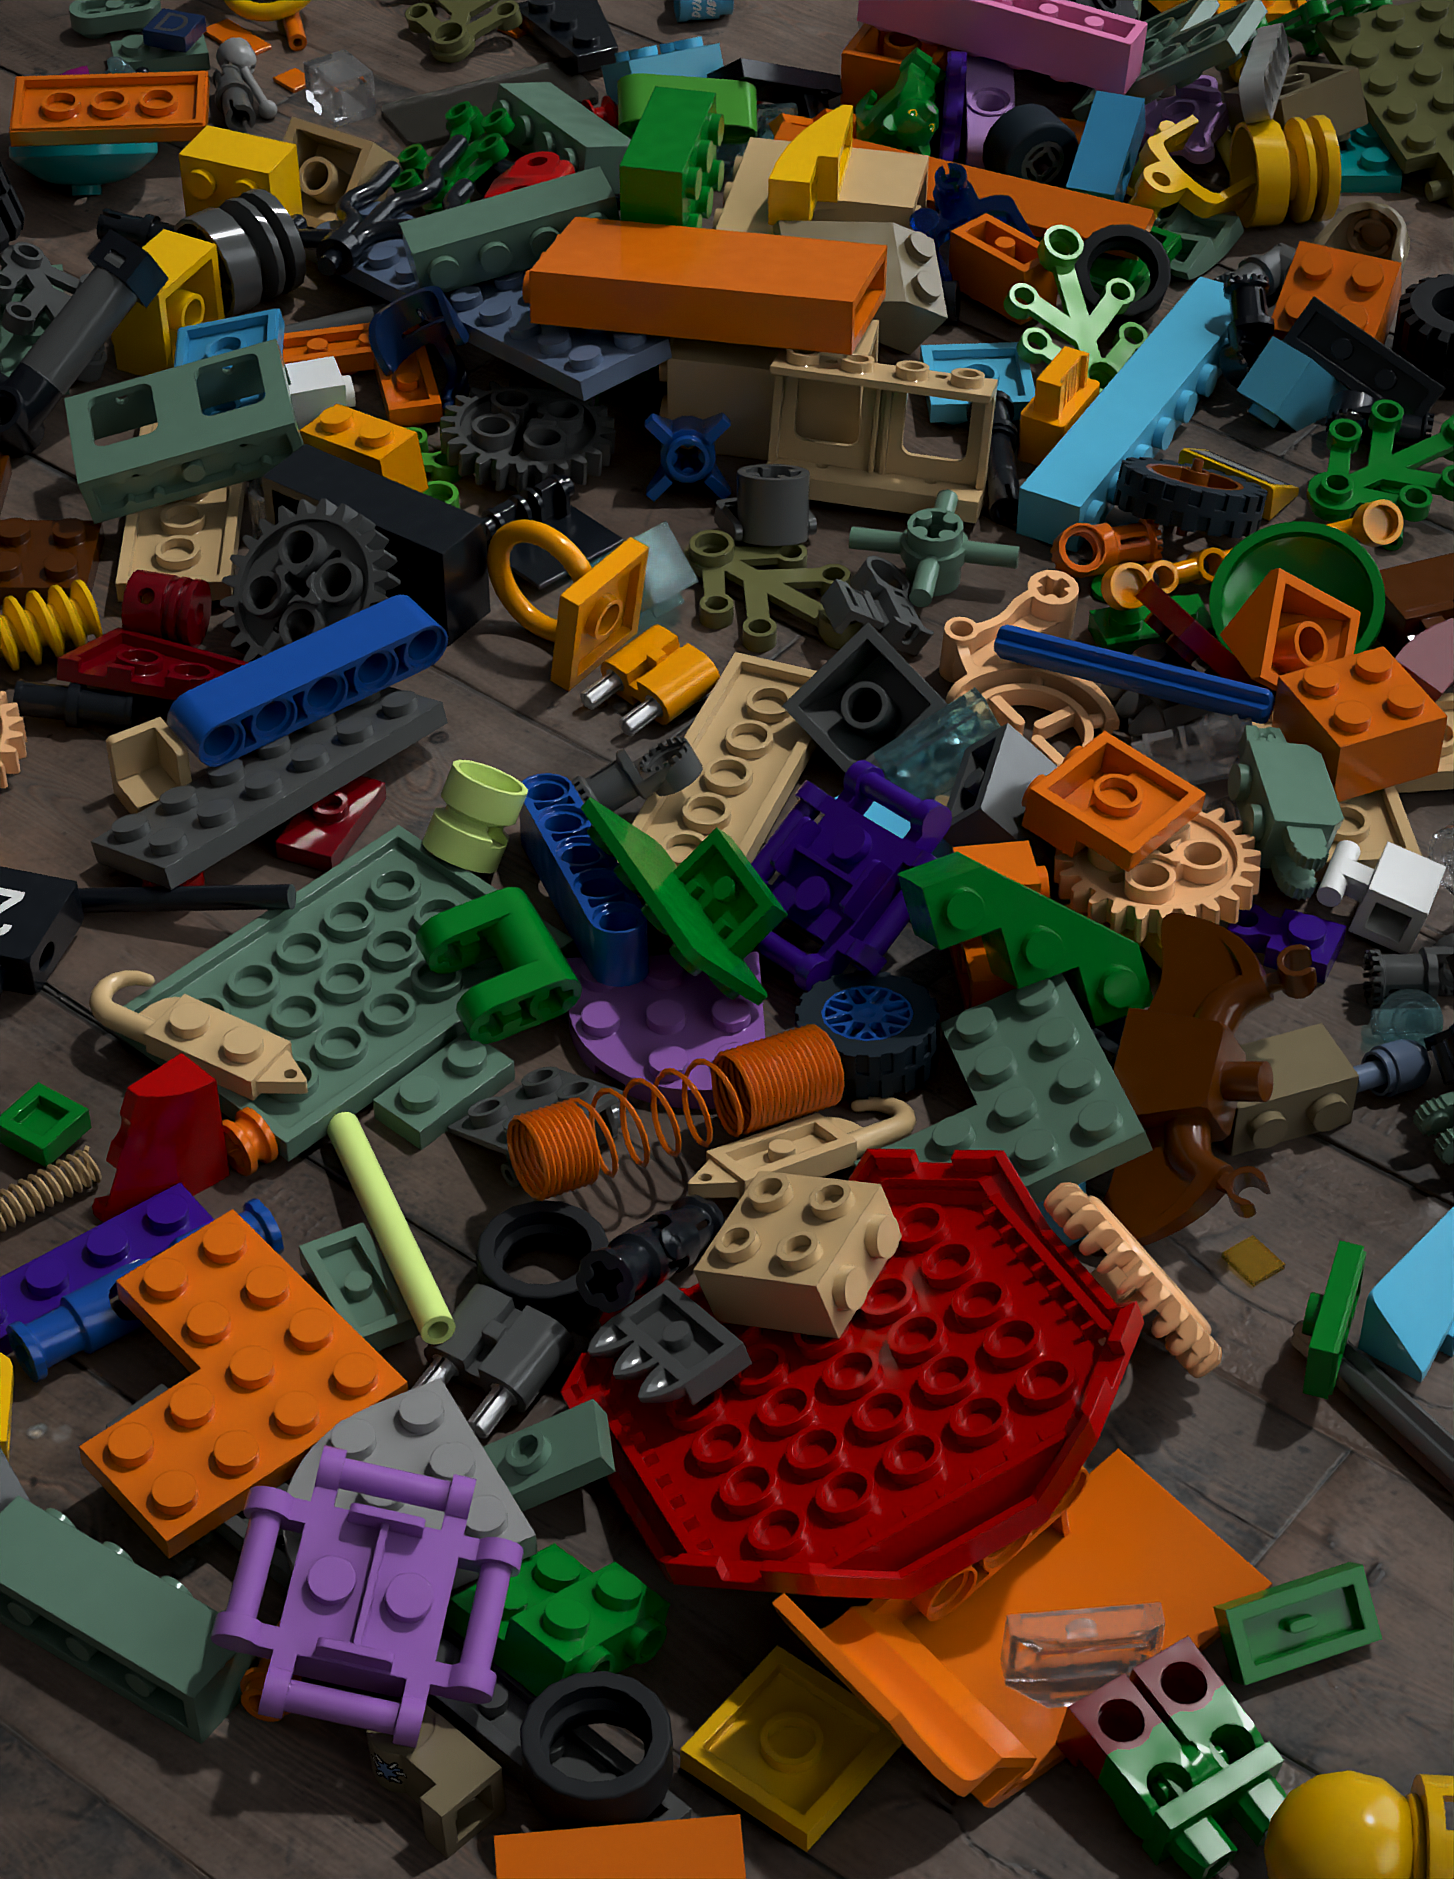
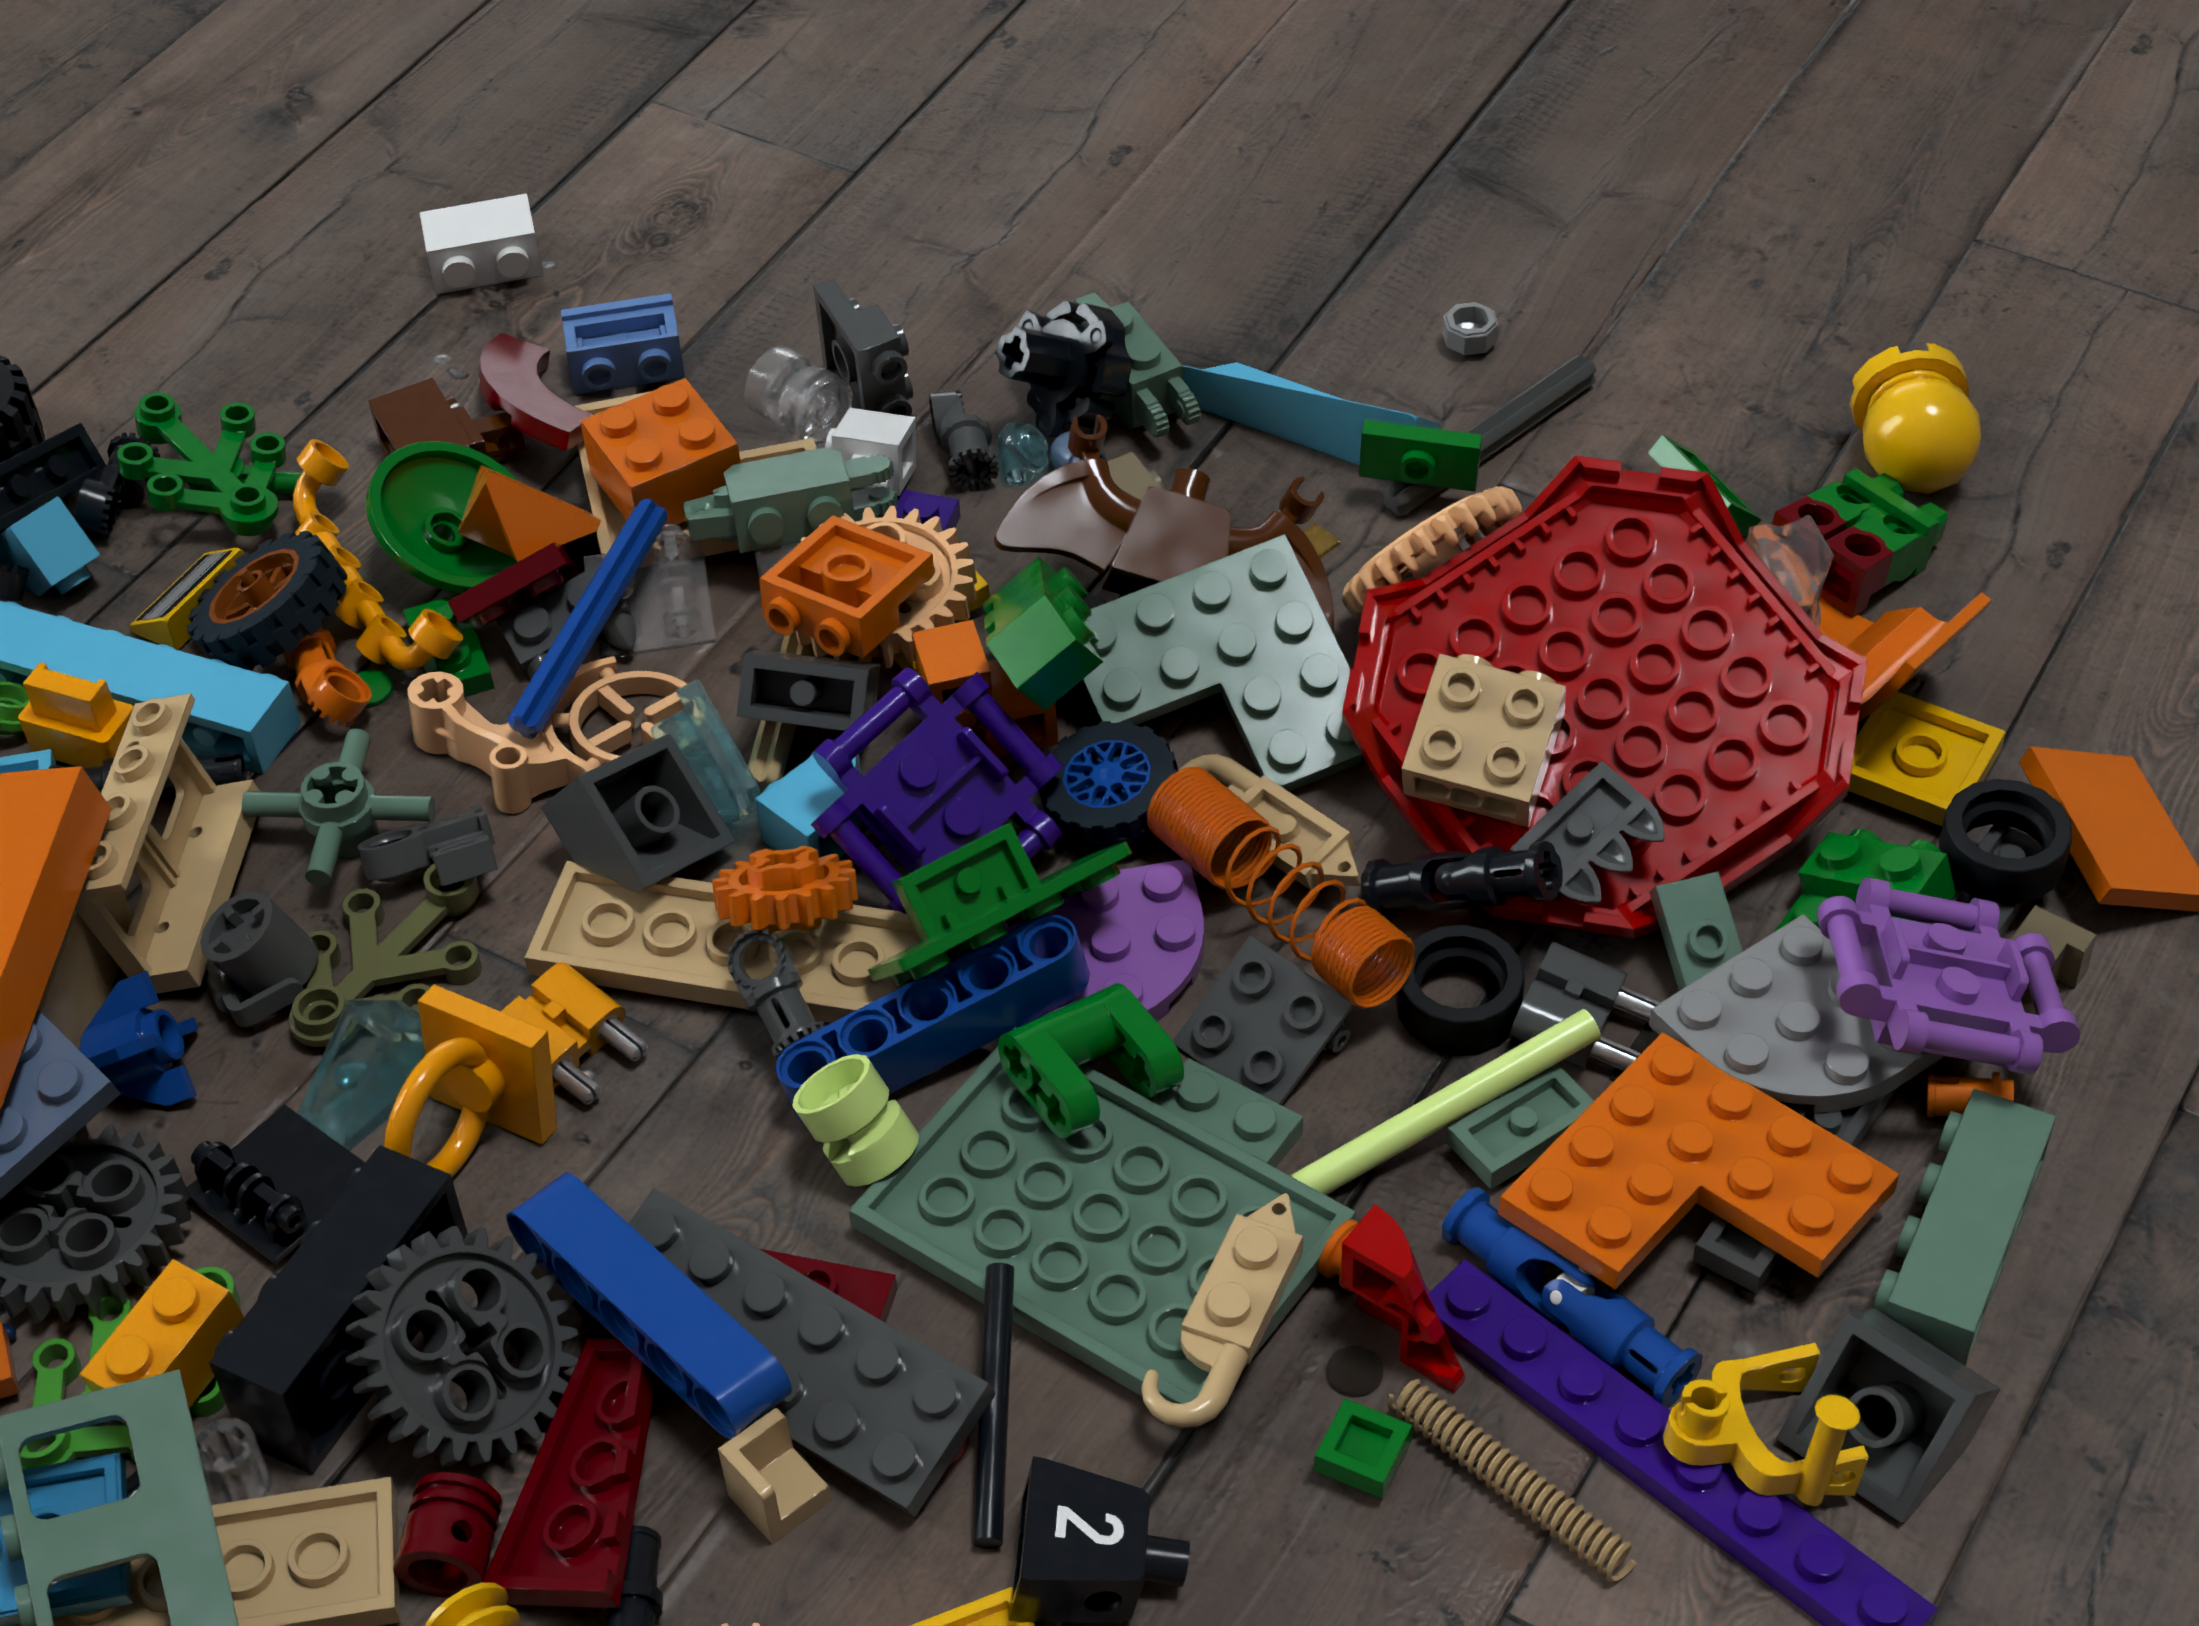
camera: 95 degrees left, 5 degrees up
(739, 773) = (785, 889): none -> orange gear

